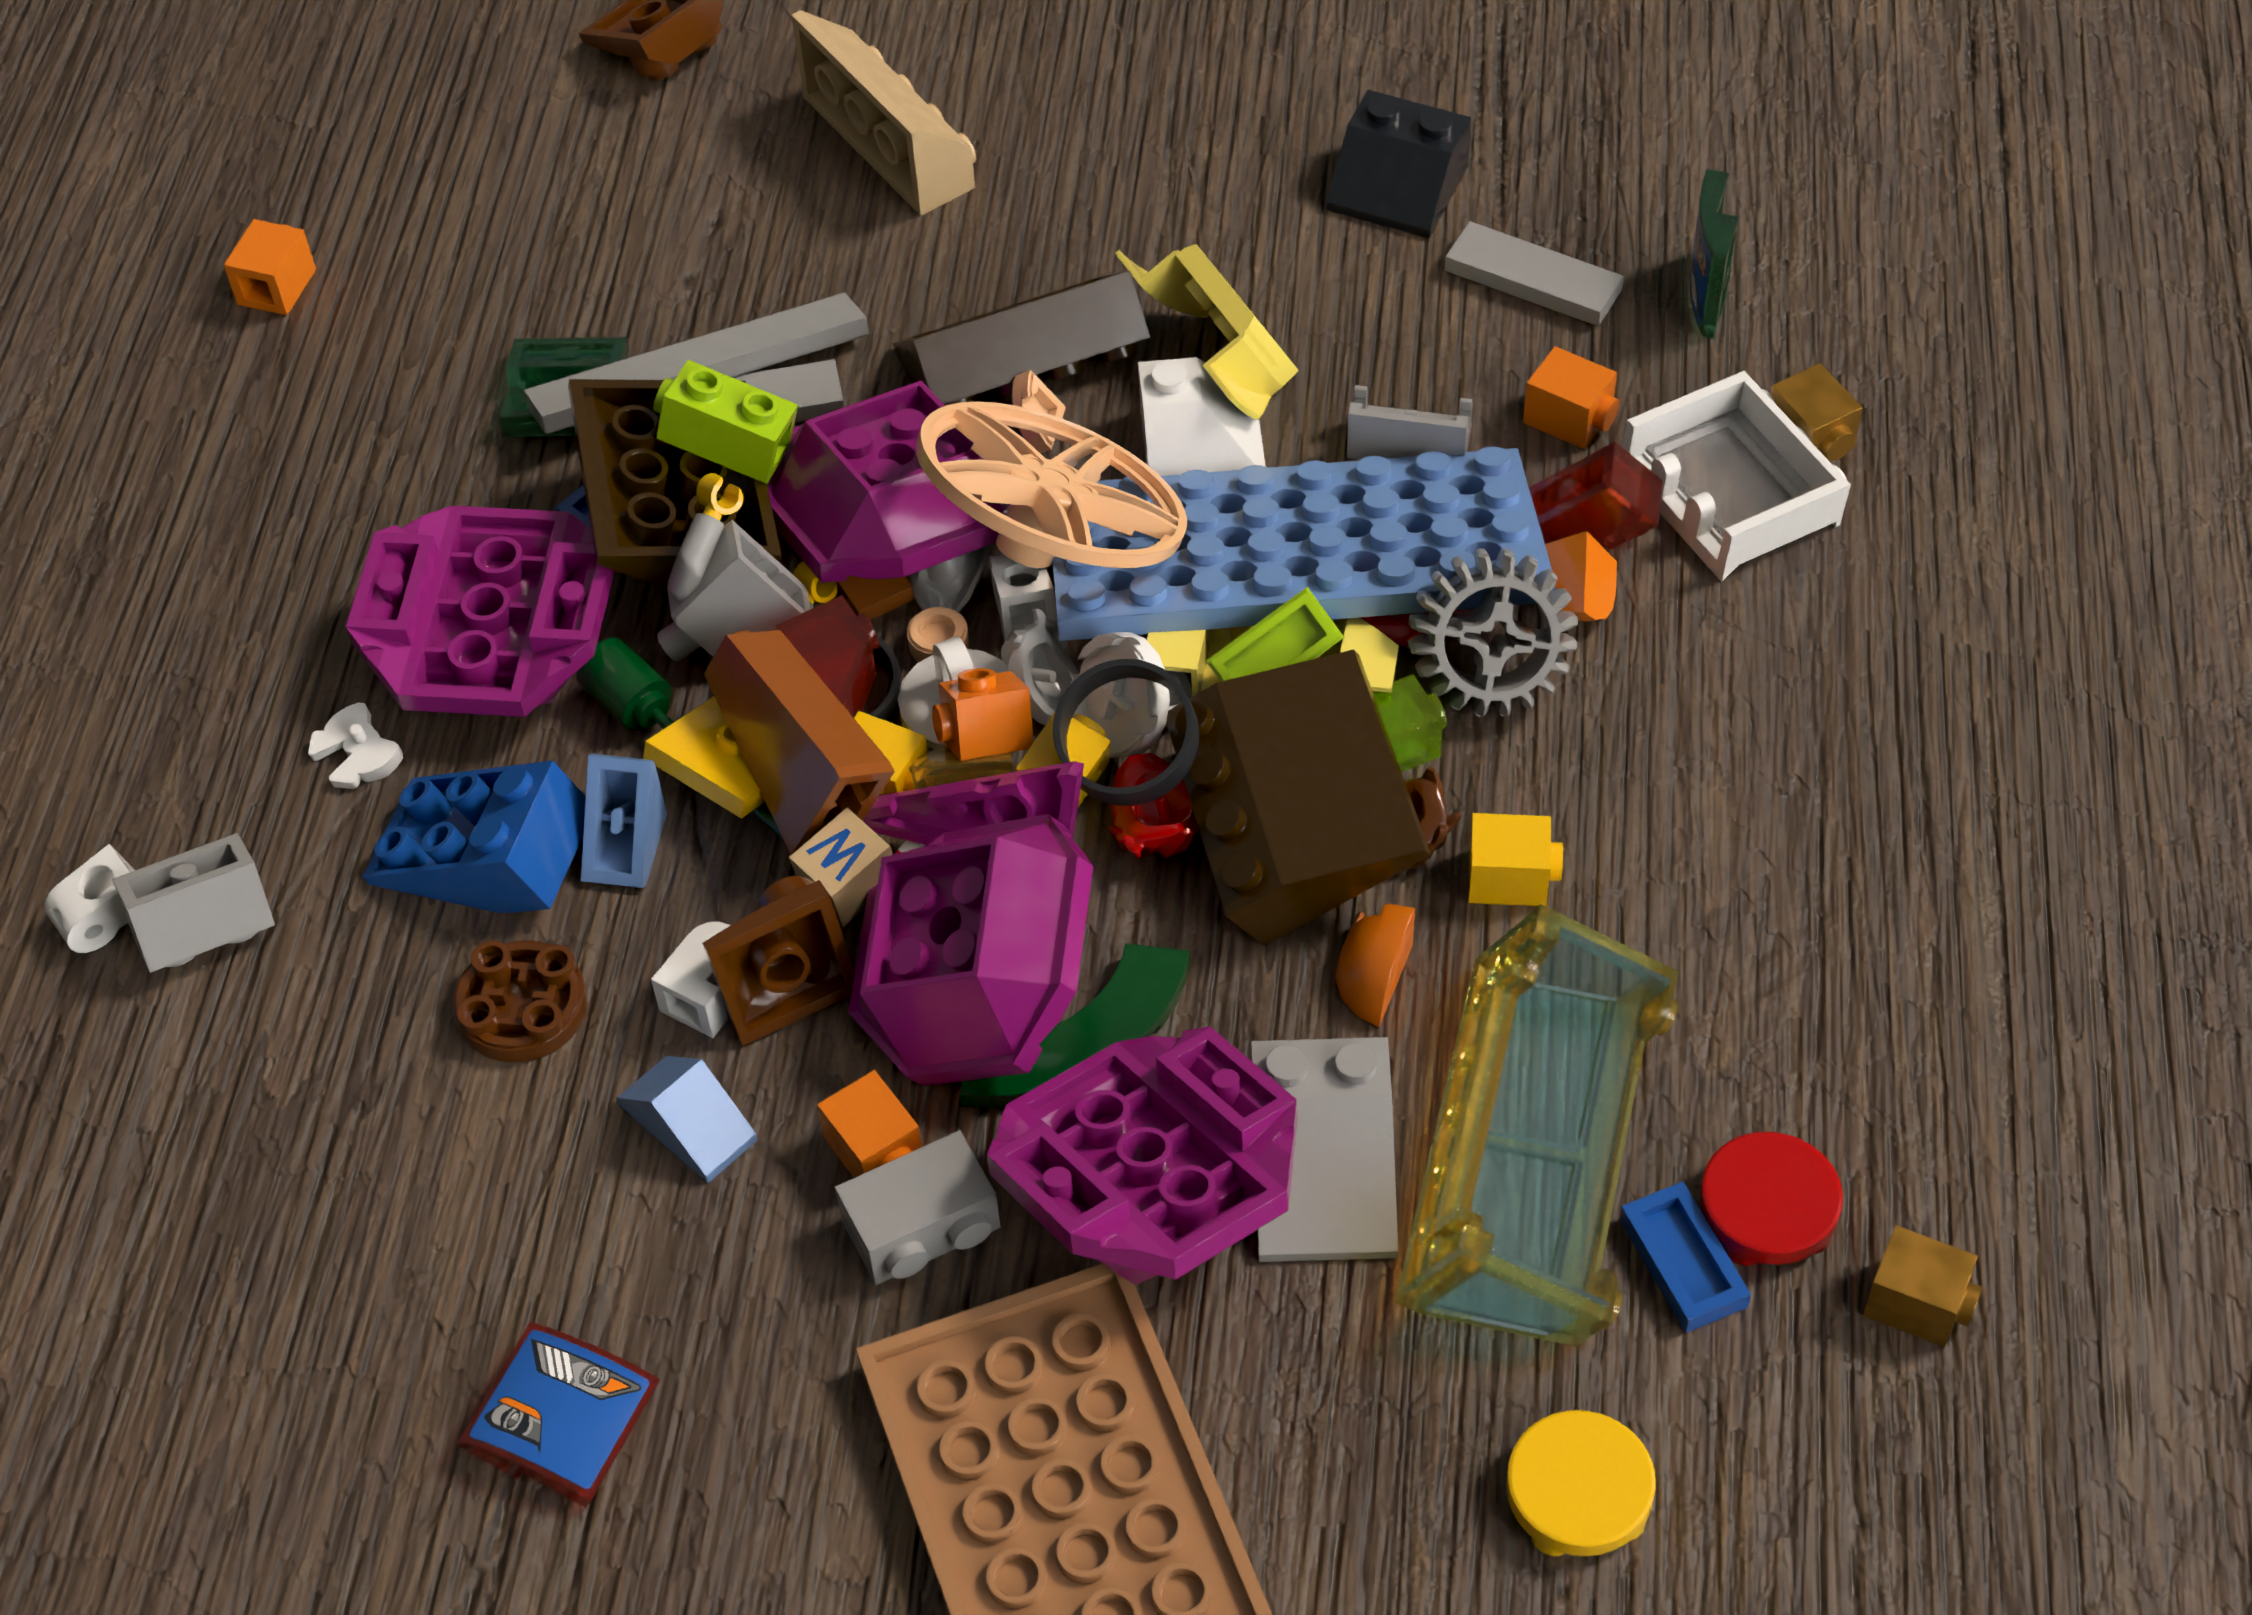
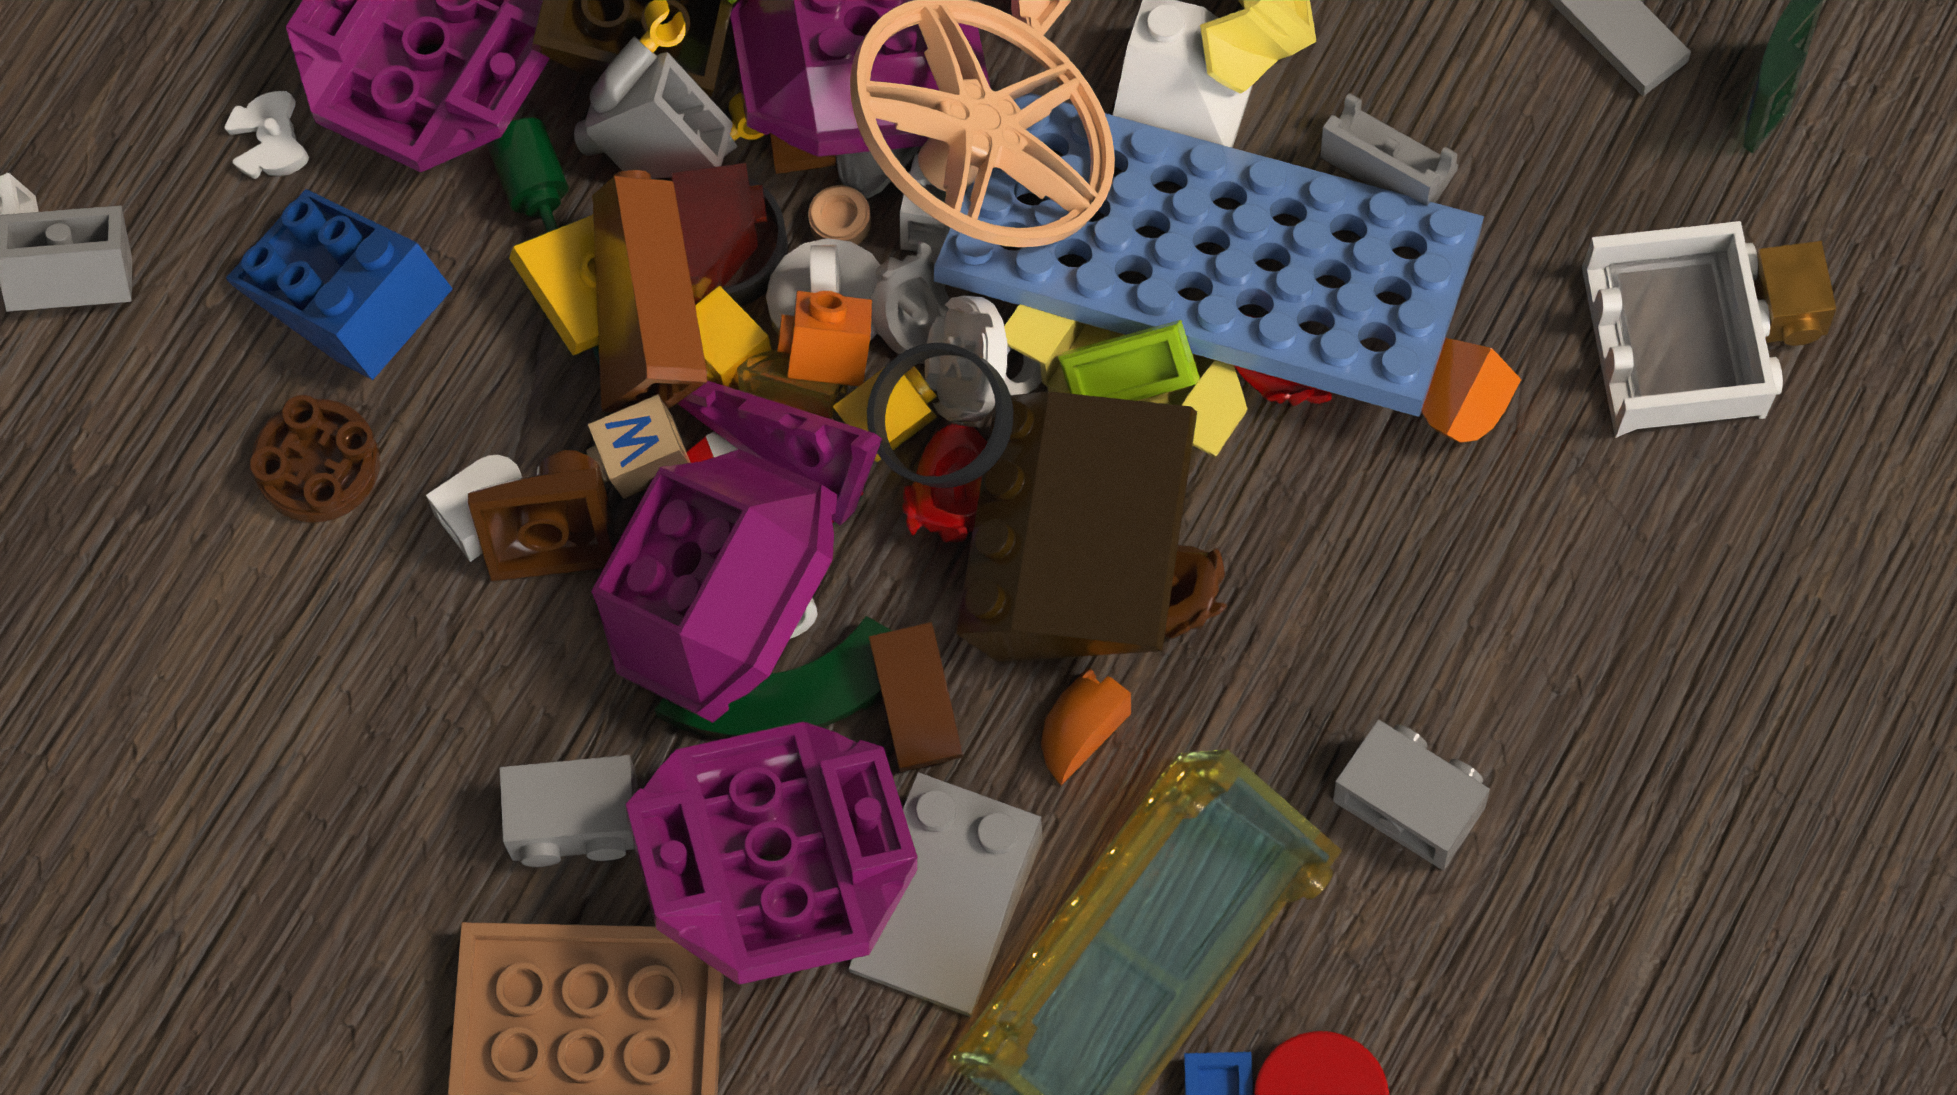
camera: 25 degrees right, 15 degrees up
(559, 1412) = (197, 877): slope -> none
(621, 820) = (467, 316): medium blue slope -> none
(689, 1114) = (414, 635): slope -> none
(867, 1125) = (560, 716): orange brick -> none
(1209, 985) = (916, 697): none -> reddish brown slope
(1412, 722) = (1221, 489): clear neon green brick -> none
(1512, 859) = (1255, 669): yellow brick -> none
(1518, 638) = (1347, 464): light grey gear -> none
(1571, 398) = (1563, 179): orange brick -> none
(1599, 494) = (1526, 310): clear red slope -> none
(1710, 911) = (1412, 792): none -> light grey brick

